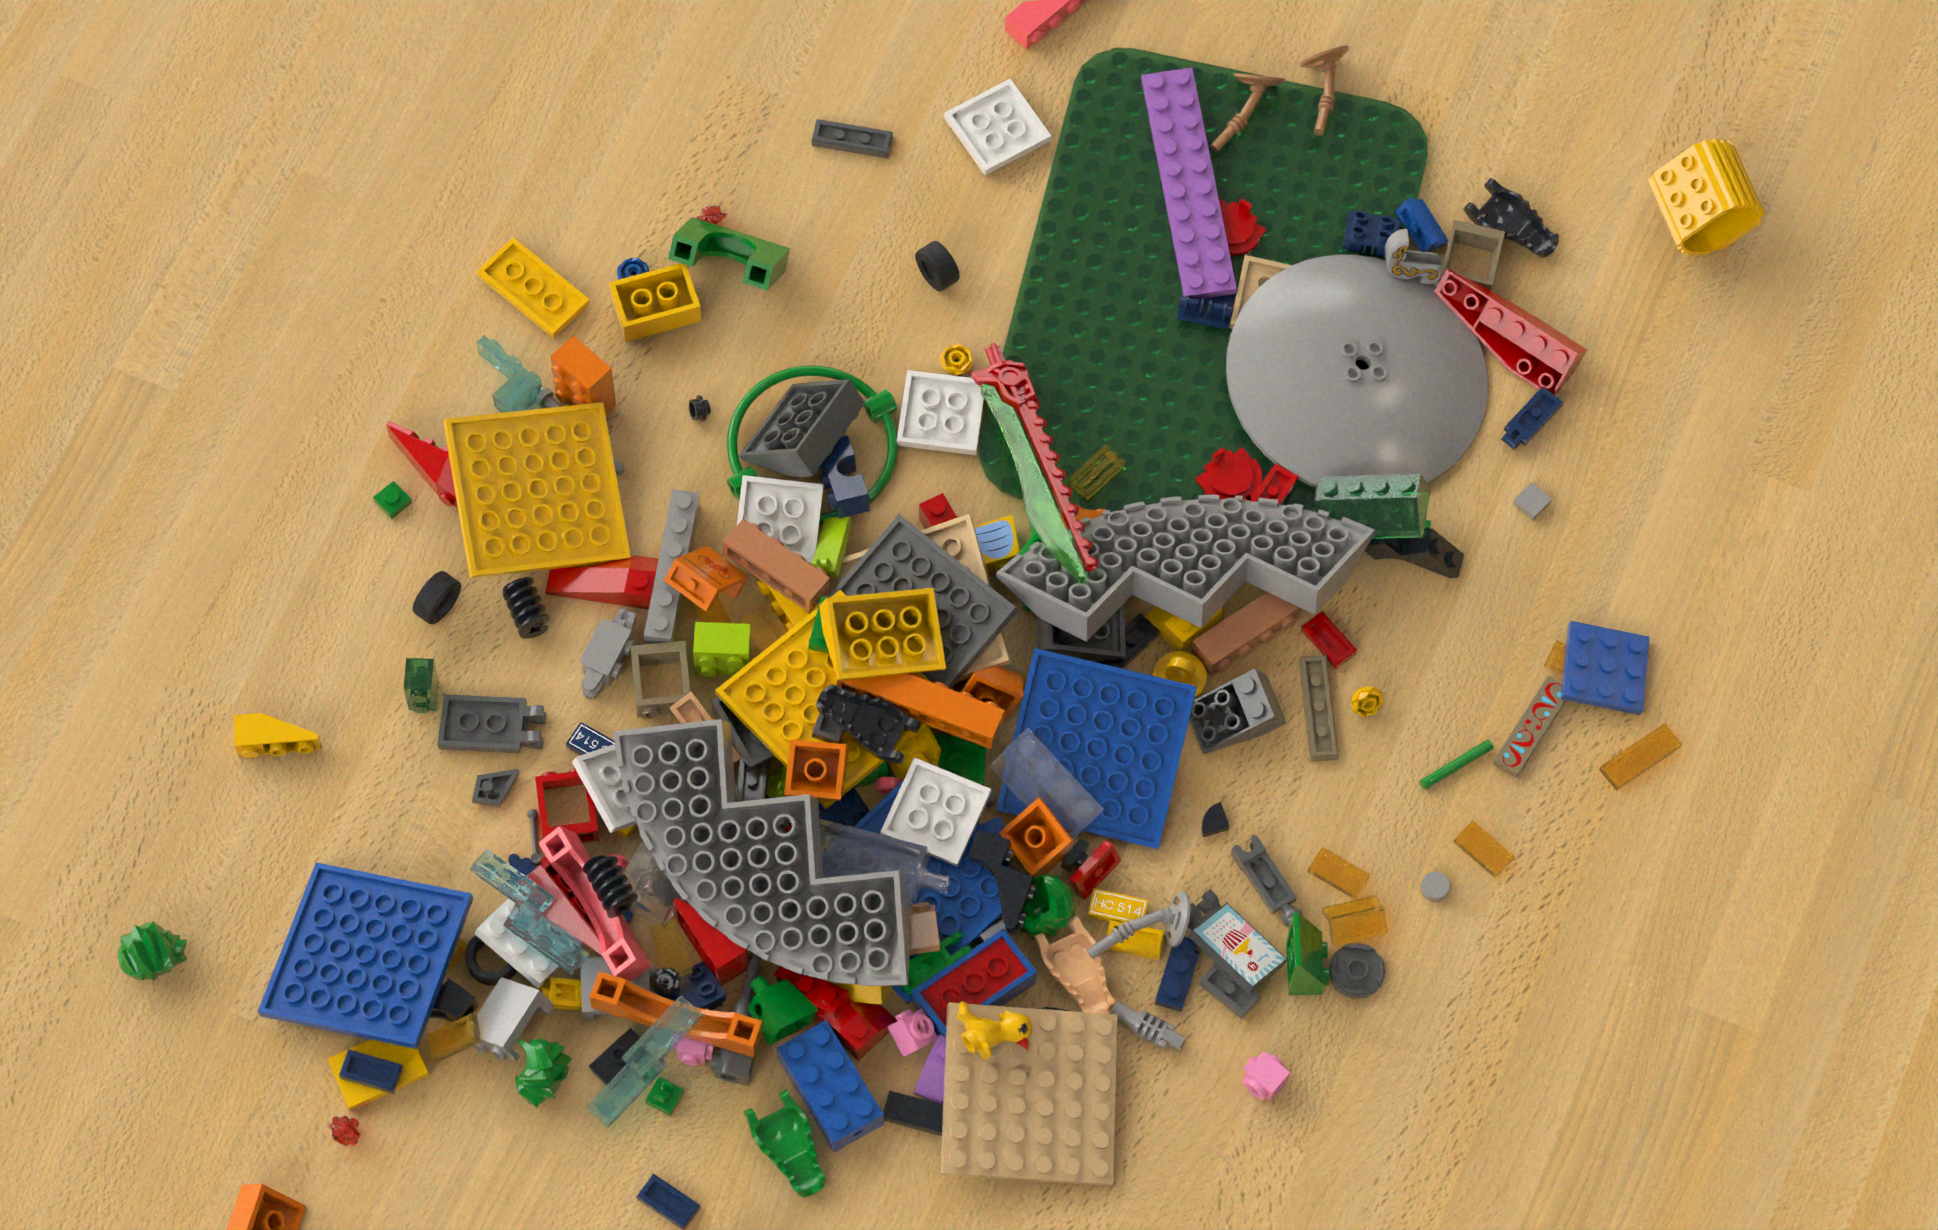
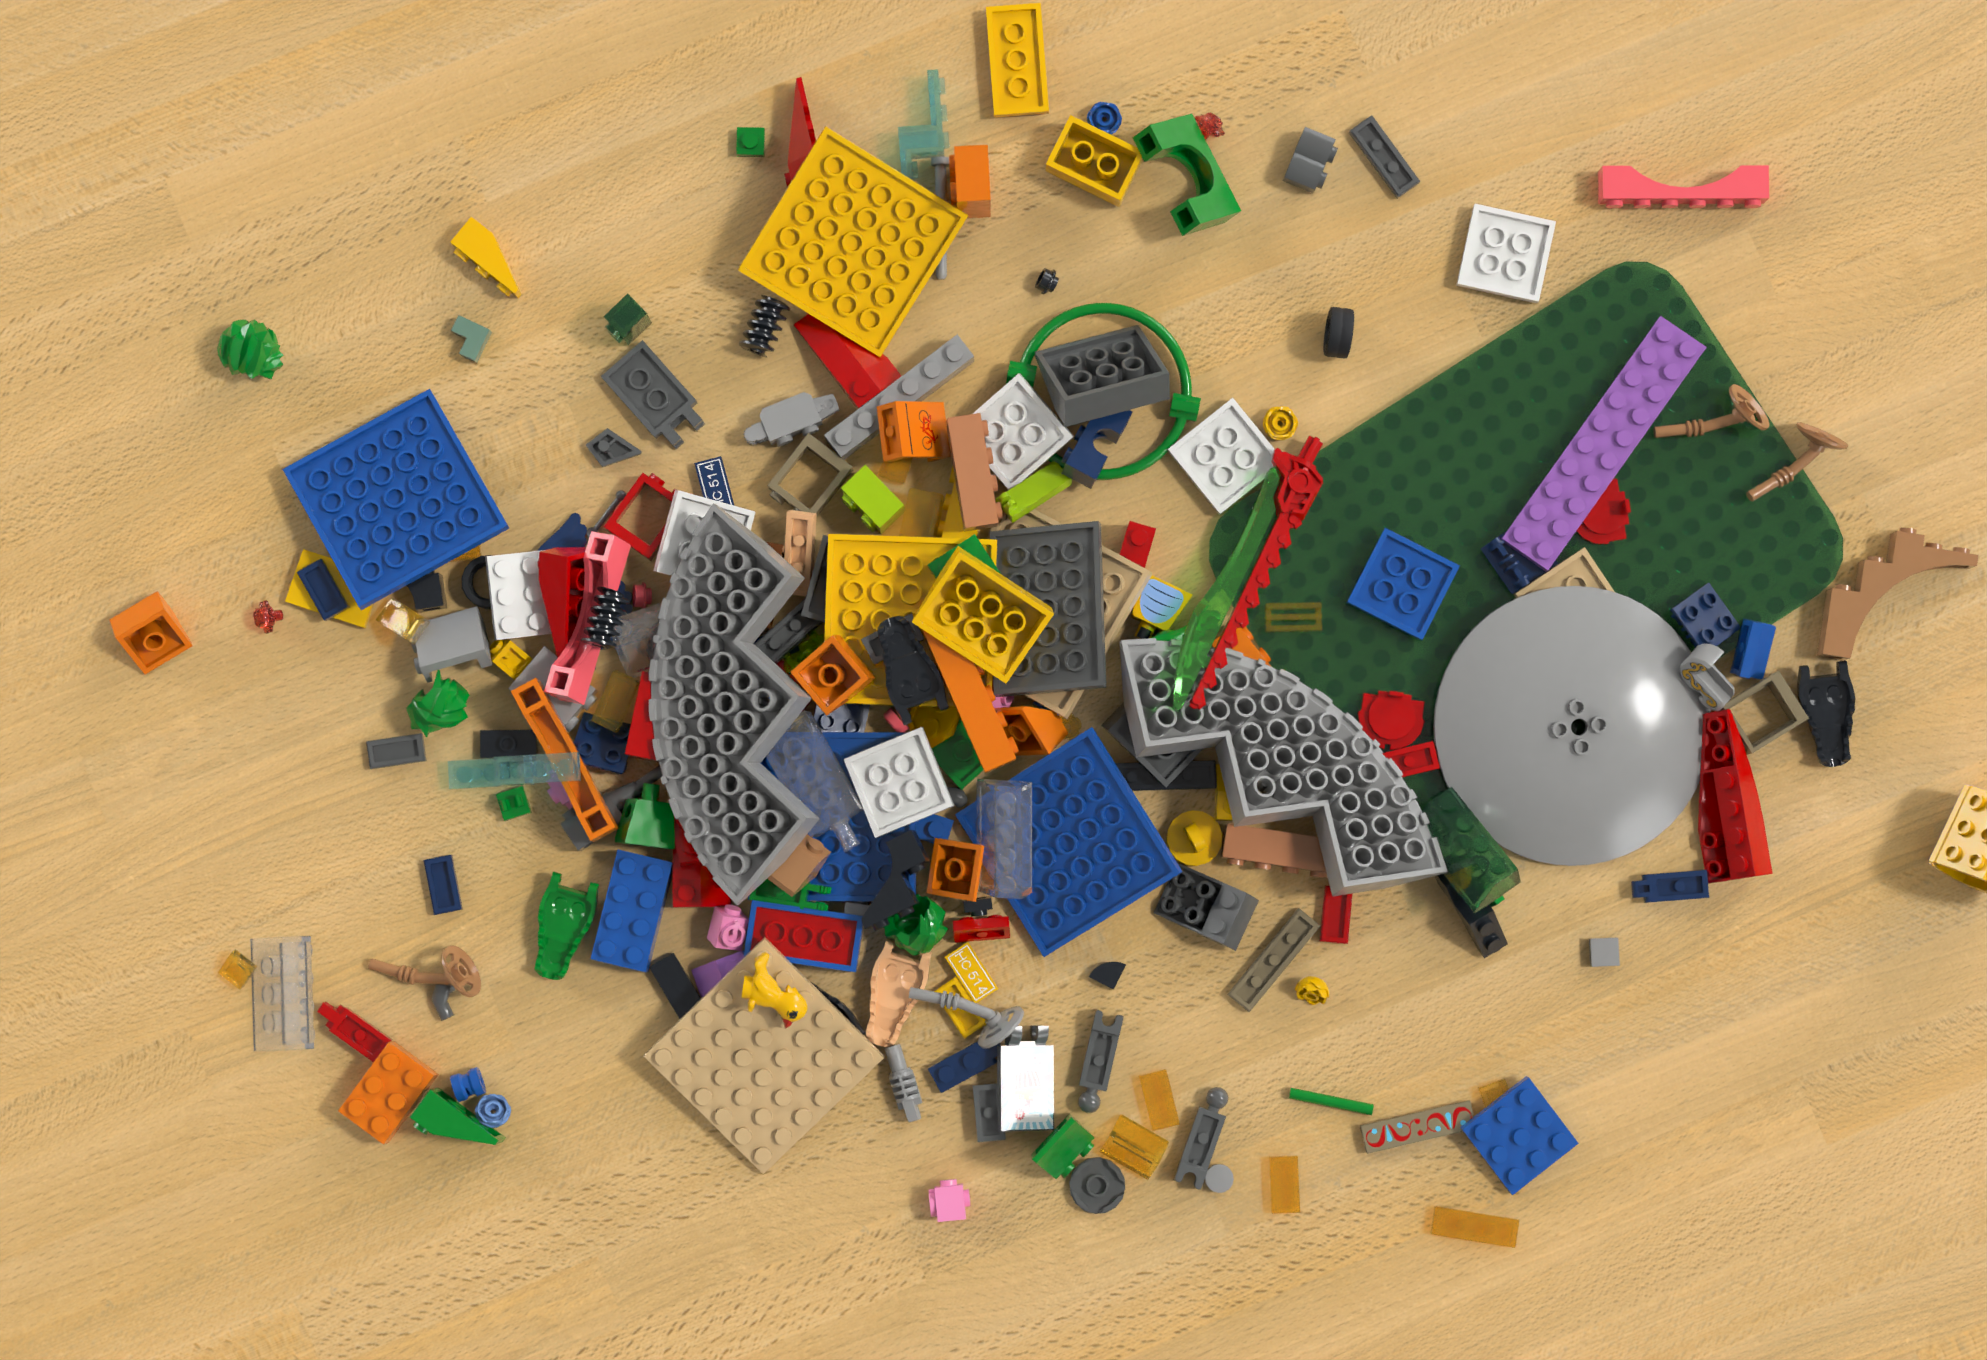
camera: 45 degrees right, 20 degrees up
(312, 799) = (475, 336): none -> sand green piece
(436, 597) = (704, 258): black tyre -> none
(529, 911) = (529, 583): clear light blue bracket -> none
(538, 1139) = (396, 751): none -> dark grey tile
(673, 977) = (595, 722): black plate -> none
(803, 180) = (1310, 159): none -> dark grey brick
(1148, 384) = (1403, 584): none -> blue plate
(1397, 870) = (1203, 1138): none -> dark grey plate
(1451, 113) = (1847, 609): none -> medium nougat arch

